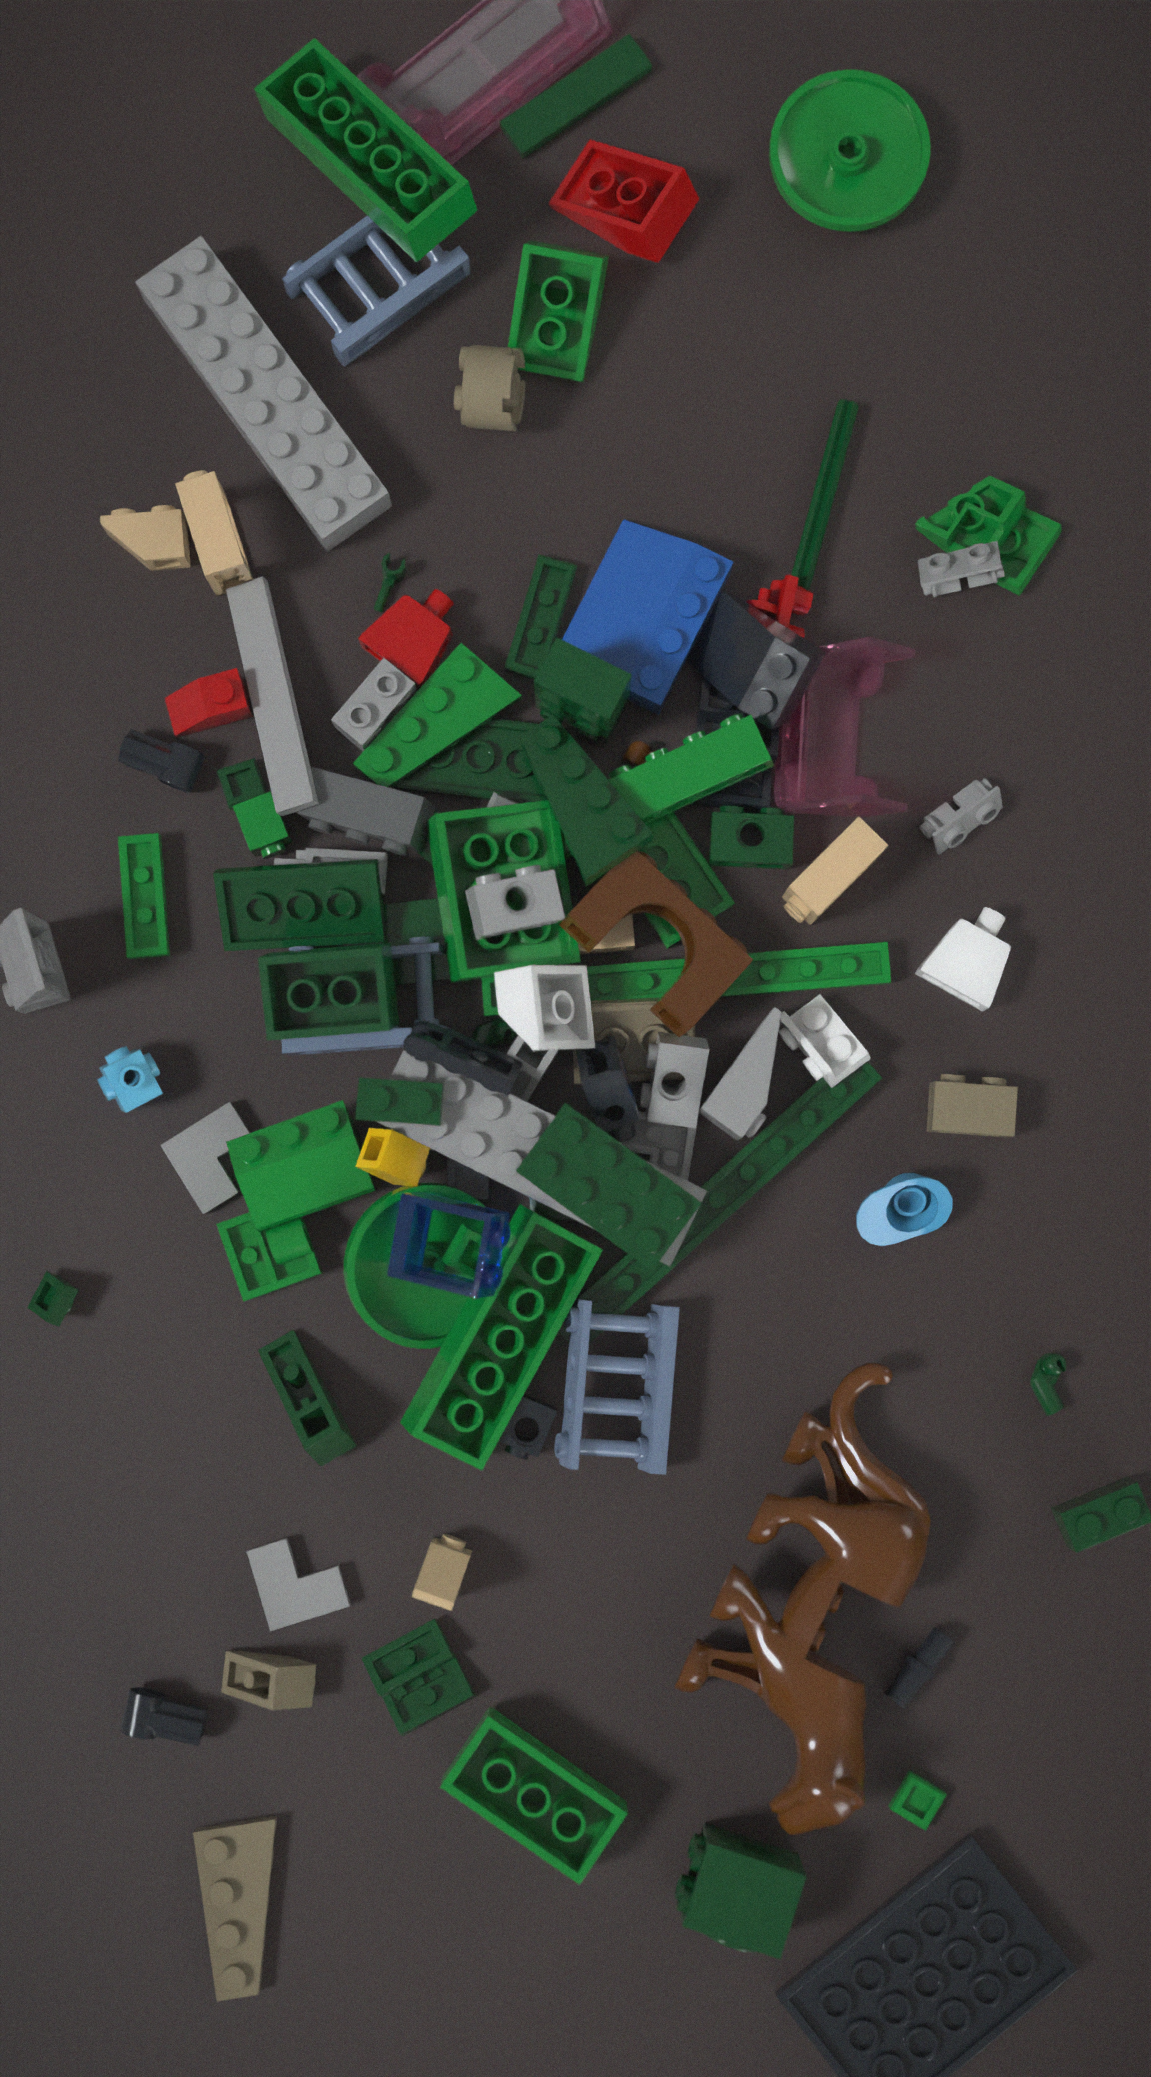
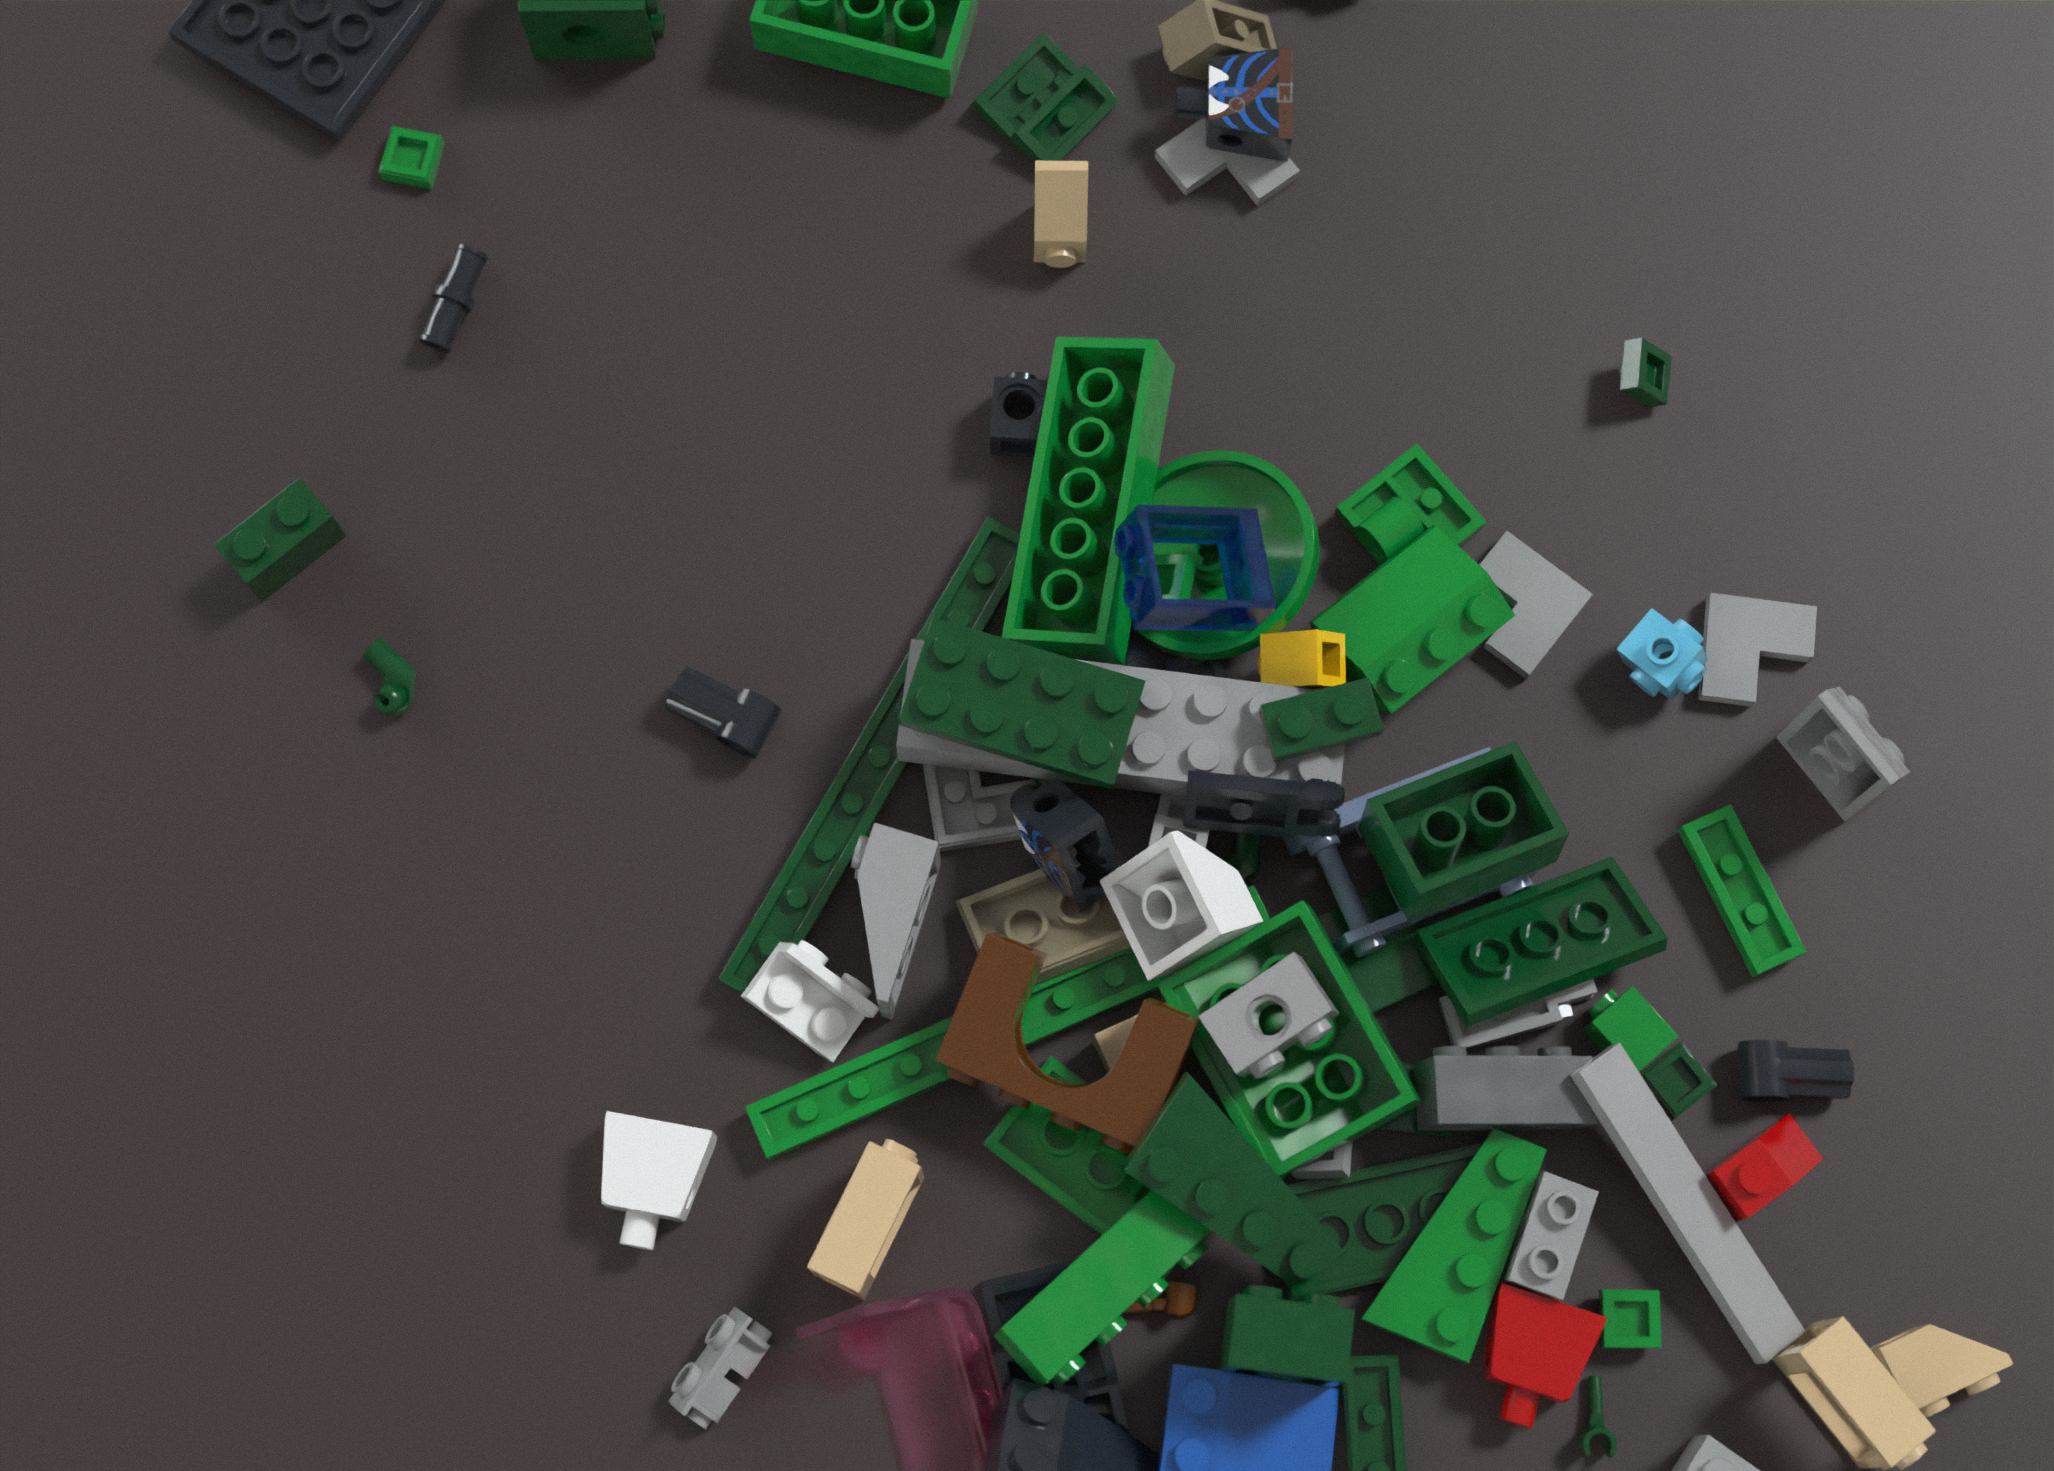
camera: 160 degrees right, 10 degrees down
(64, 1082) = (1741, 631): none -> light grey tile
(269, 1615) = (1245, 103): none -> torso
(306, 1399) = (1296, 358): dark green slope -> none
(340, 637) = (1631, 1319): none -> green plate
(652, 1409) = (875, 482): sand blue fence -> none
(679, 1103) = (977, 853): light grey brick -> none
(728, 849) = (1015, 1209): dark green brick -> none
(811, 1267) = (735, 717): none -> black piece
(873, 1541) = (554, 398): reddish brown animal -> none
(904, 1209) = (638, 822): dark azure piece -> none
(972, 1108) = (589, 981): dark tan brick -> none

